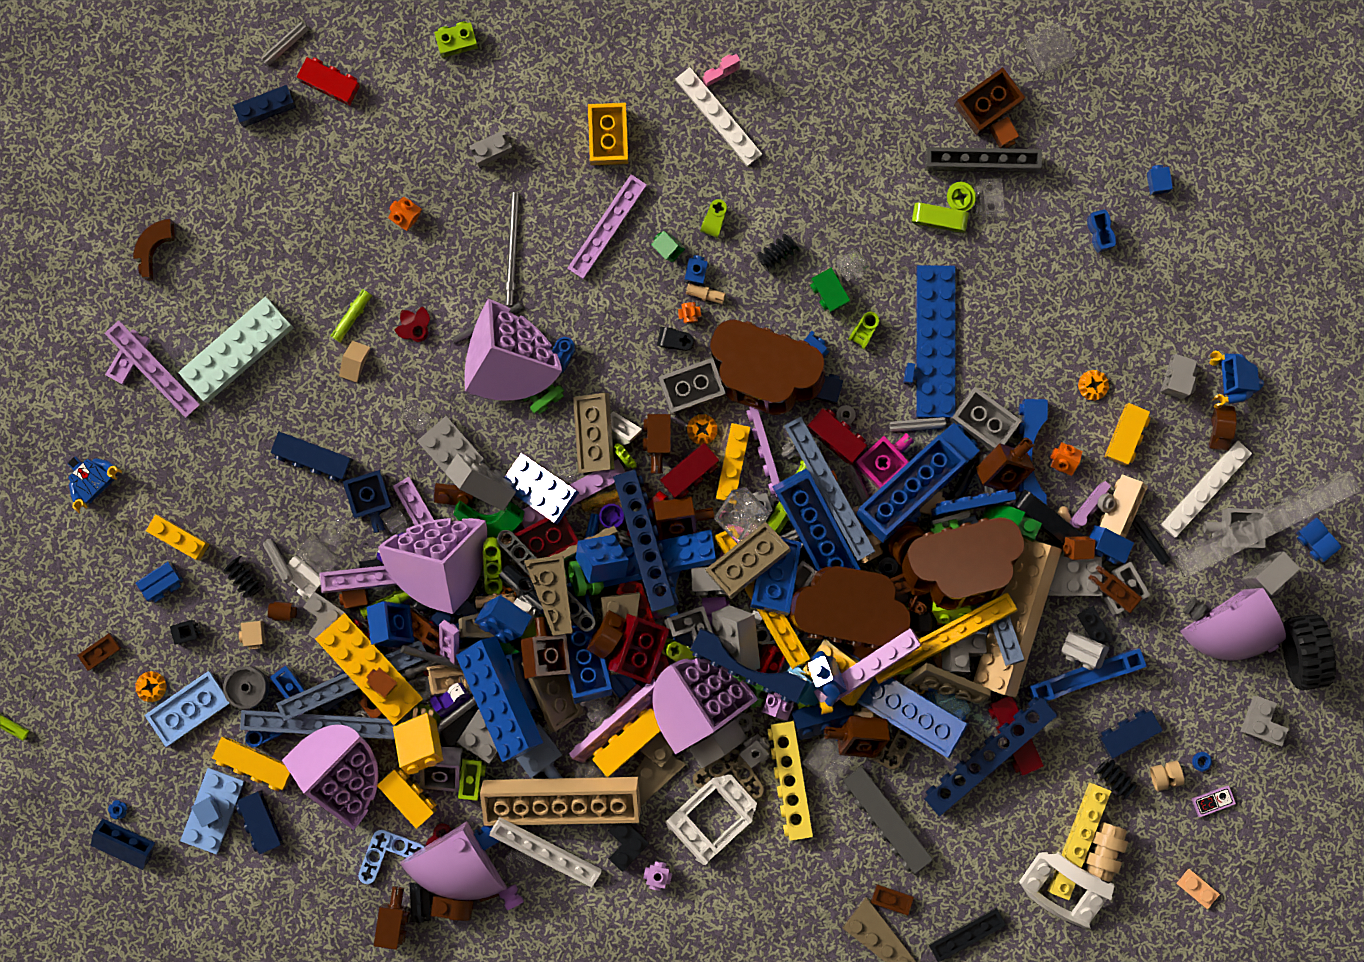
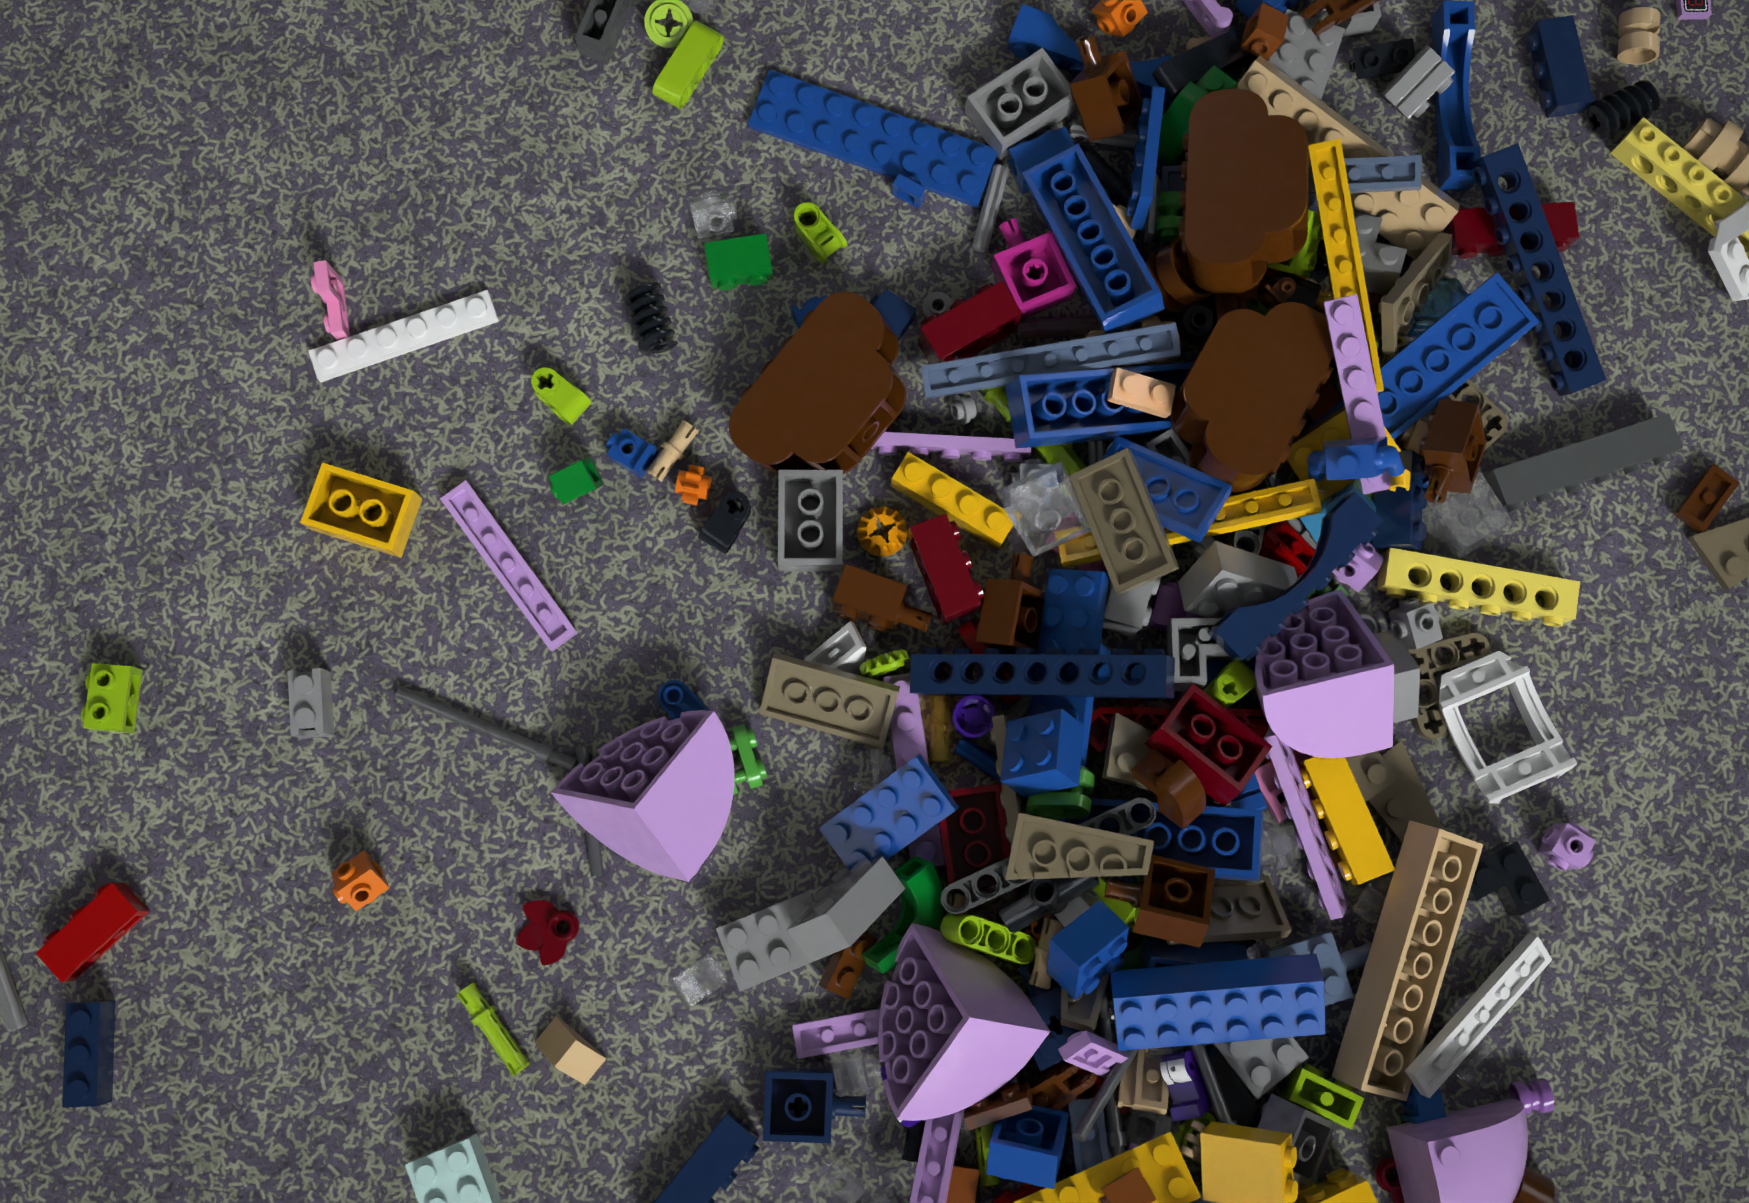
camera: 70 degrees left, 5 degrees down
(406, 604) = (1000, 1105): none -> reddish brown plate
(829, 546) = (1141, 393): none -> light nougat plate

